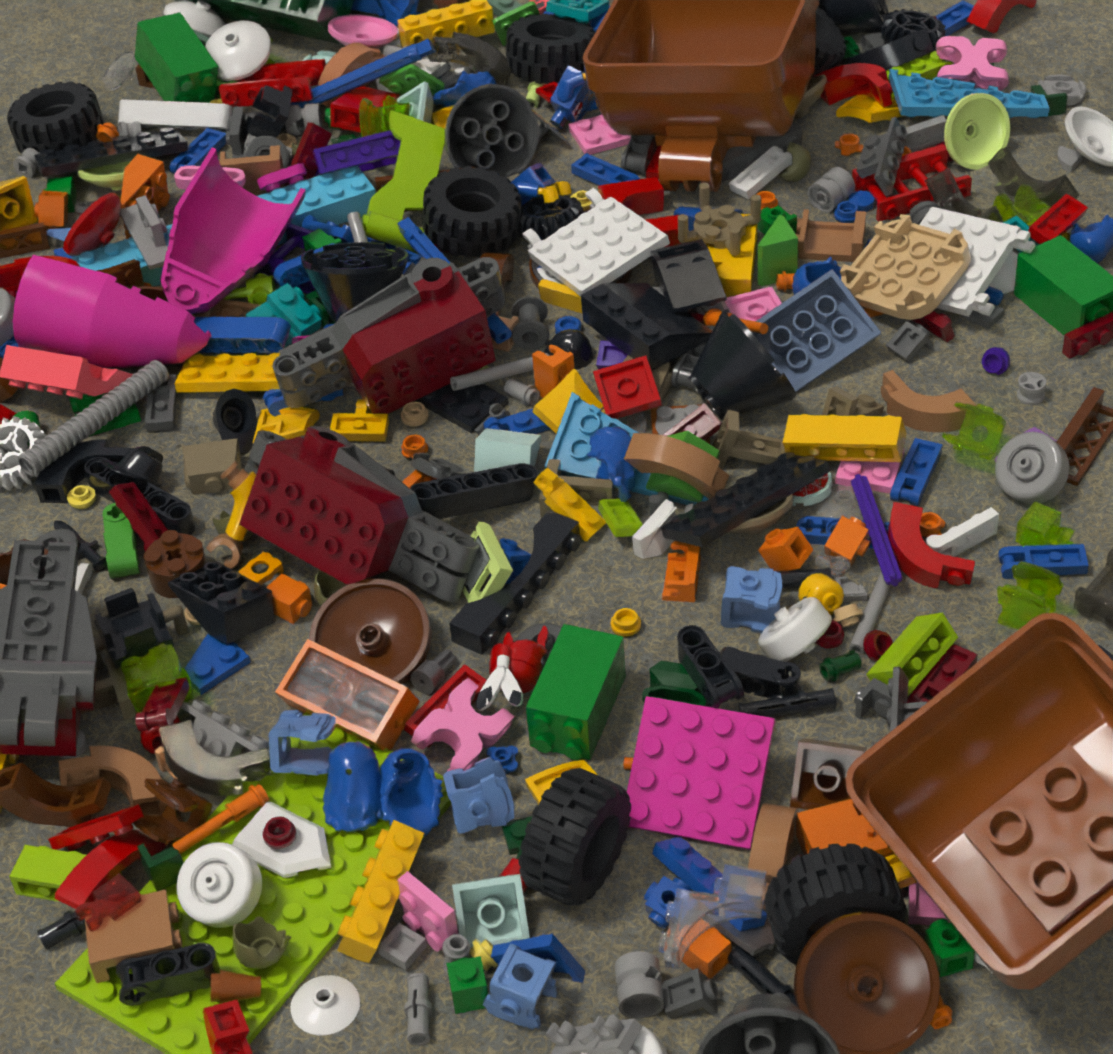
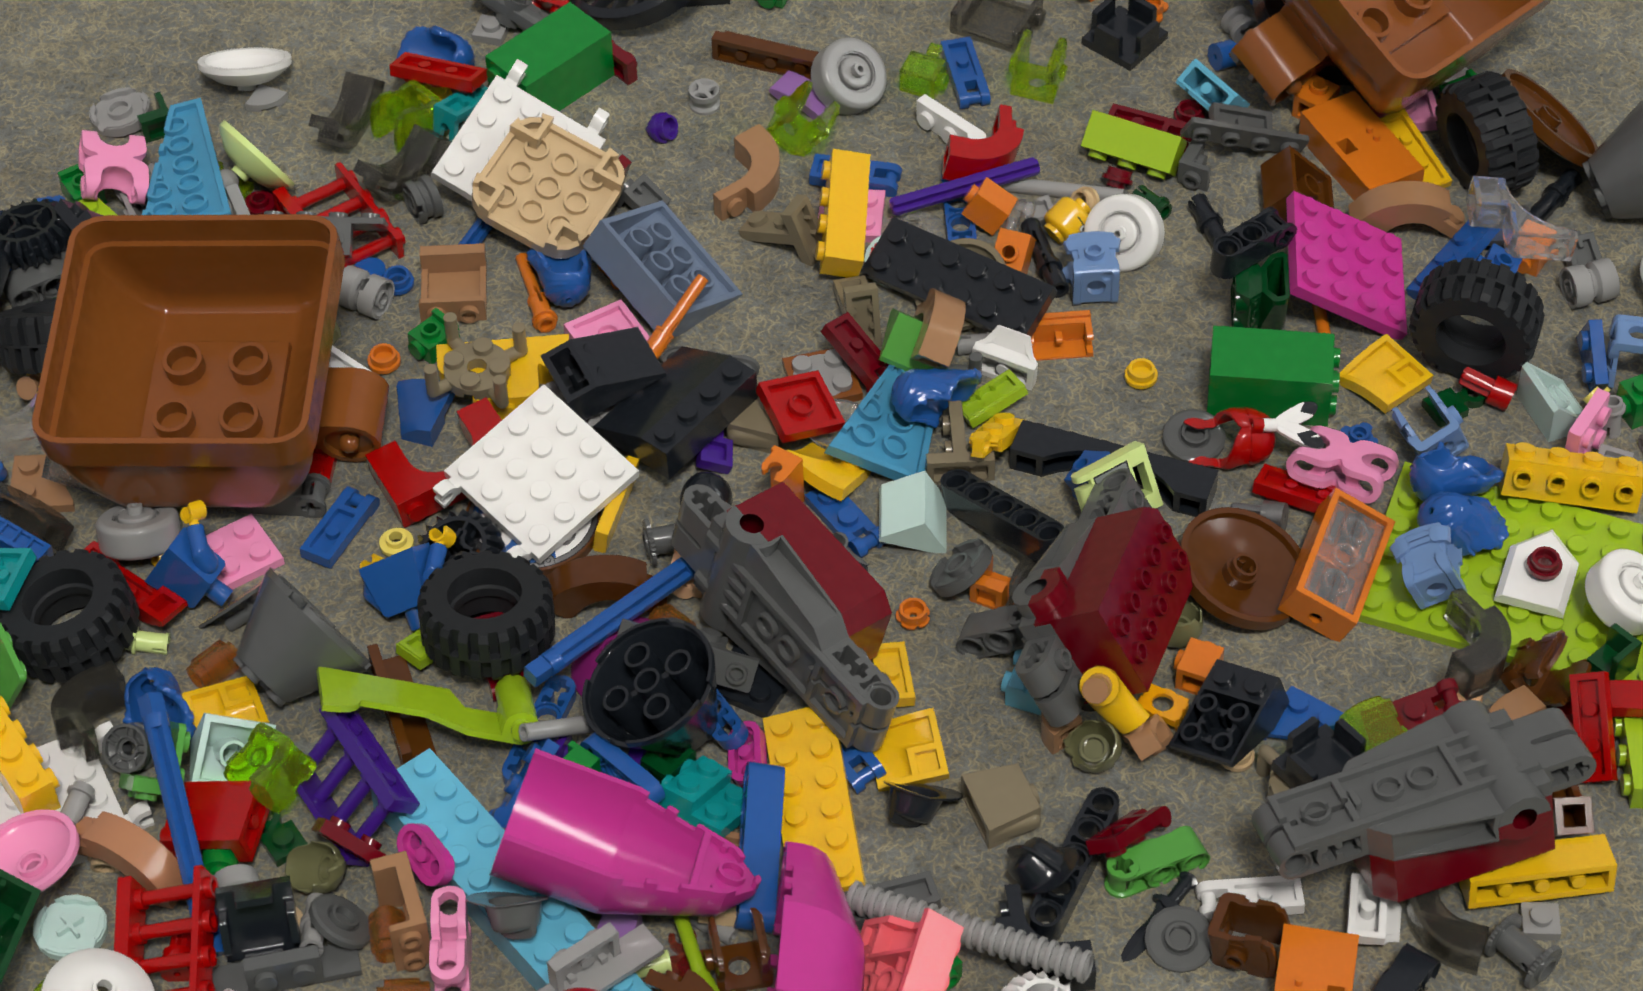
camera: 105 degrees left, 5 degrees up
(81, 497) = (1082, 927): light yellow plate -> none
(171, 557) = (1183, 782): reddish brown brick -> none
(218, 735) = (1424, 657): light grey bracket -> none
(234, 810) = (1521, 621): orange pin -> none
(567, 322) = (659, 511): blue tile -> none
(738, 371) = (758, 309): black cone -> none
(763, 674) = (1187, 257): black piece -> none
(777, 252) = (505, 305): bright green slope -> none
(931, 524) = (932, 158): orange plate -> none

